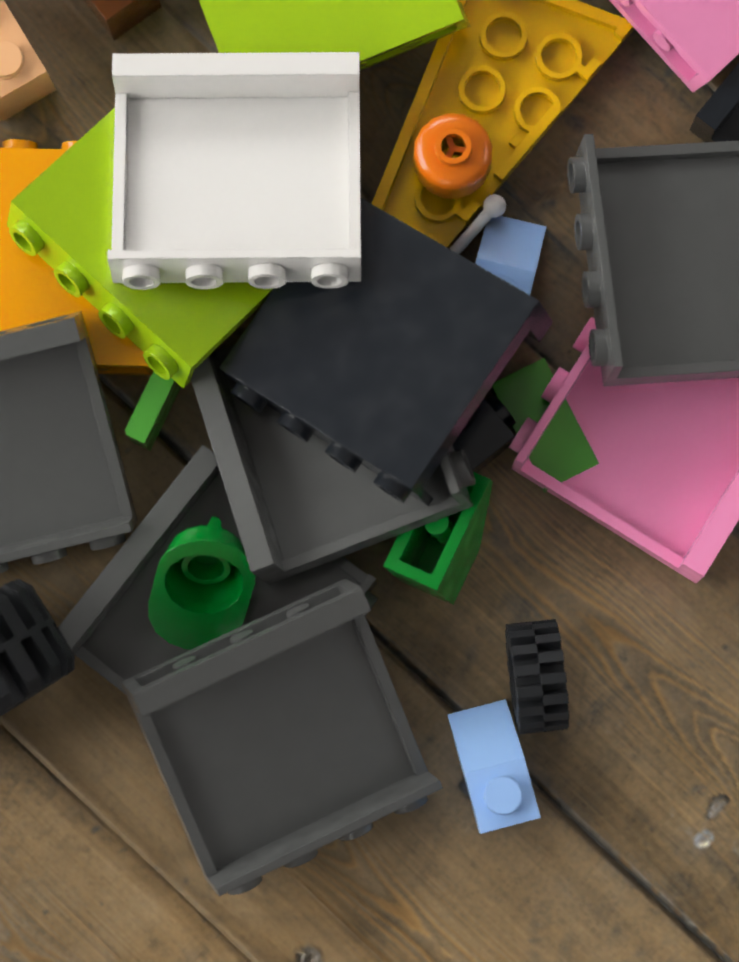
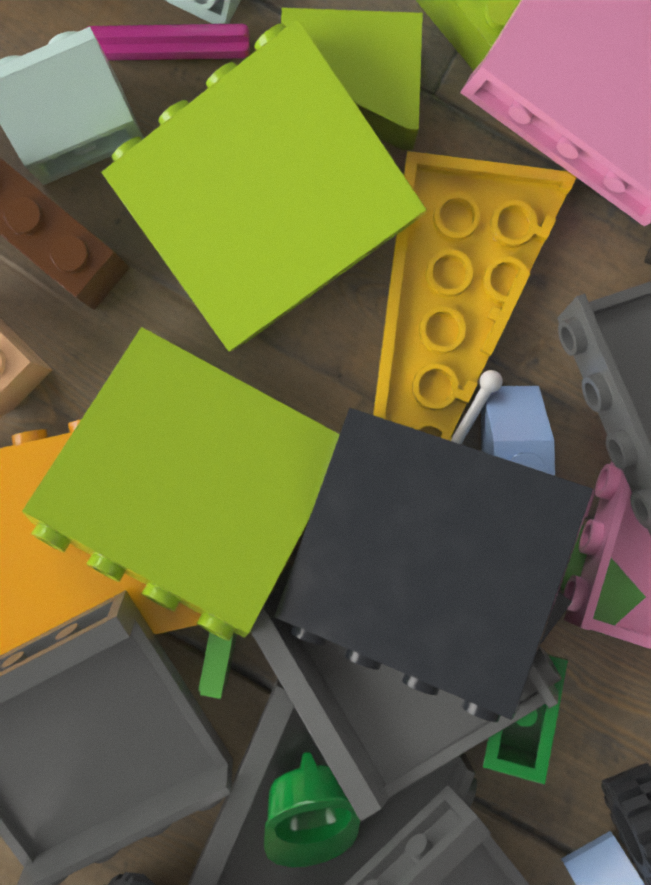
camera: 20 degrees left, 5 degrees up
(236, 169) = (241, 422): white panel -> none
(447, 175) = (456, 329): orange head -> none

